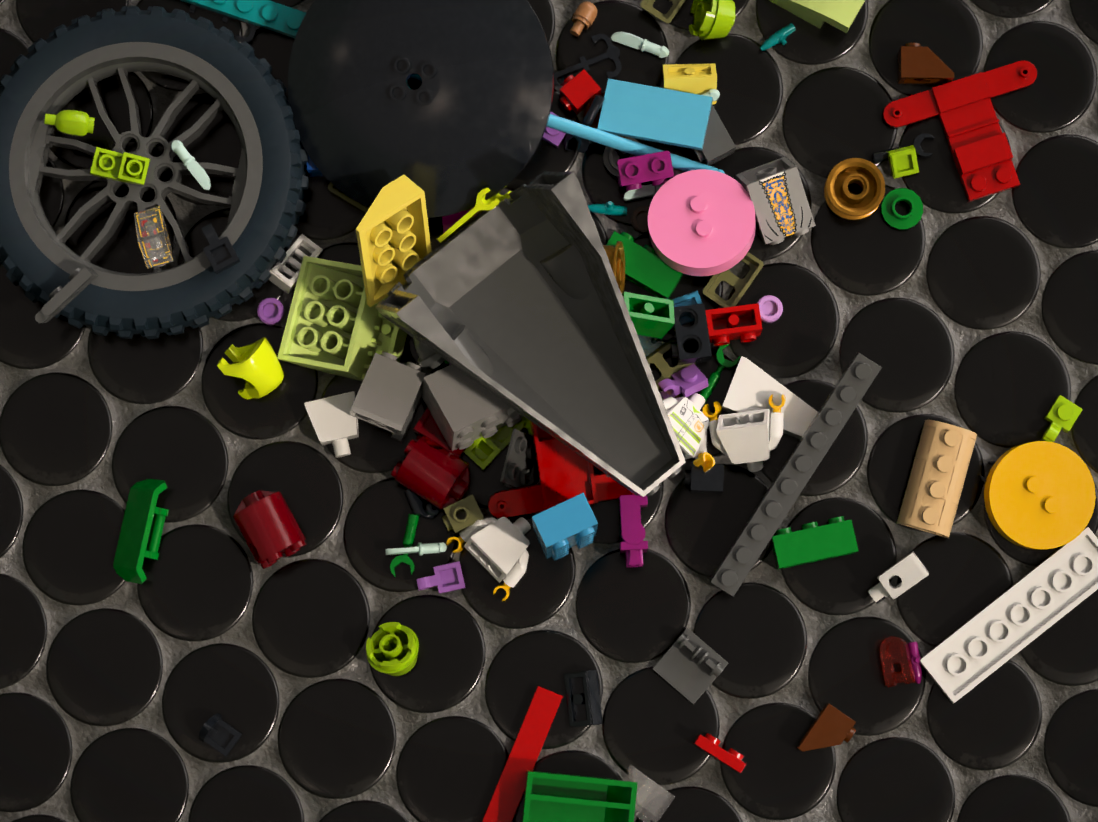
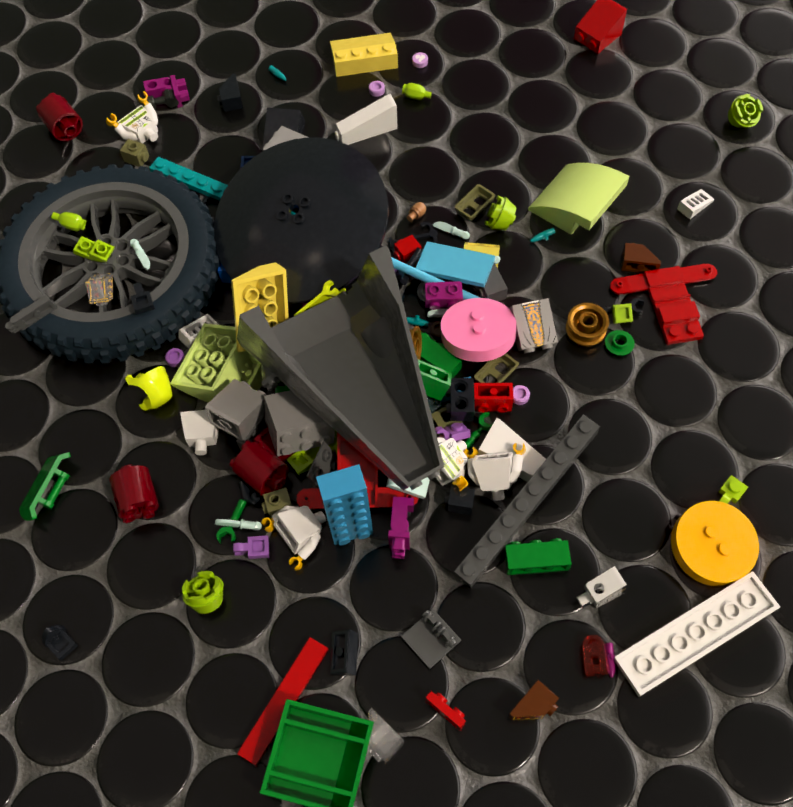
camera: 10 degrees right, 20 degrees down
(937, 478) = (636, 520): tan container -> none

